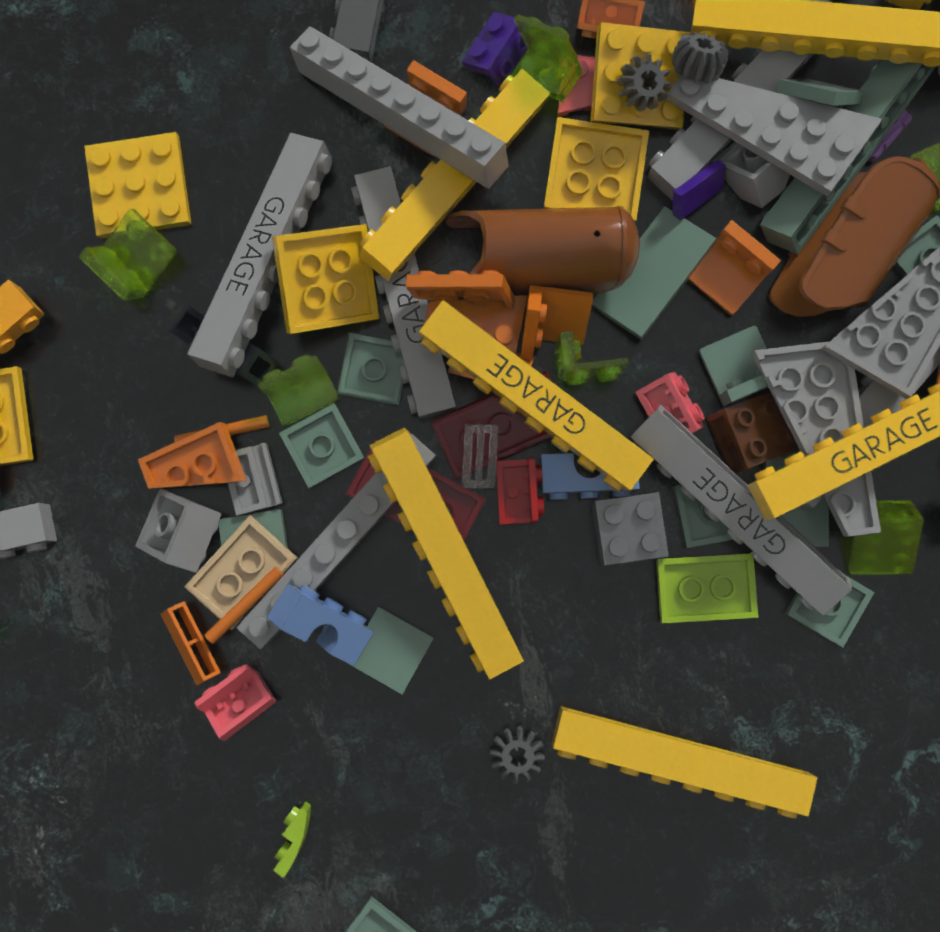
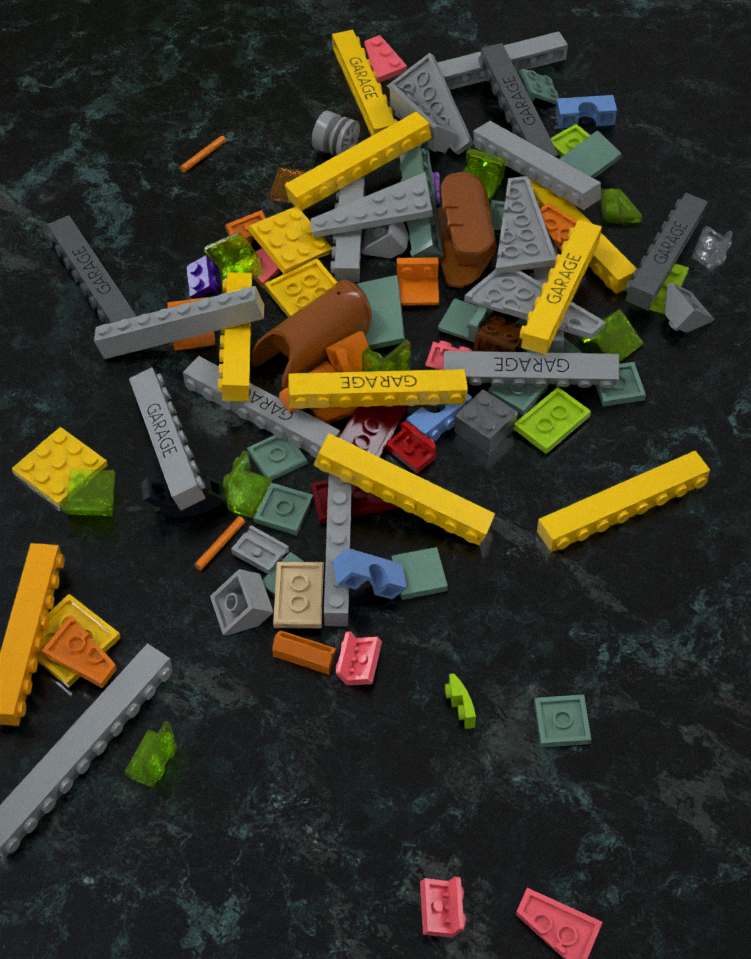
camera: 40 degrees left, 30 degrees down
(194, 461) = (219, 561): orange wing -> none
(244, 605) = (317, 603): orange bar -> none
(324, 279) = (212, 422): yellow plate -> none
(473, 287) = (302, 360): orange wing -> none
(480, 429) = (371, 445): clear tile -> none
(506, 756) = (538, 564): dark grey gear -> none
(633, 82) = (296, 233): dark grey gear -> none
(698, 189) = (367, 263): dark purple tile -> none
(700, 57) = (313, 206): dark grey gear -> none
(819, 91) = (387, 181): sand green tile -> none

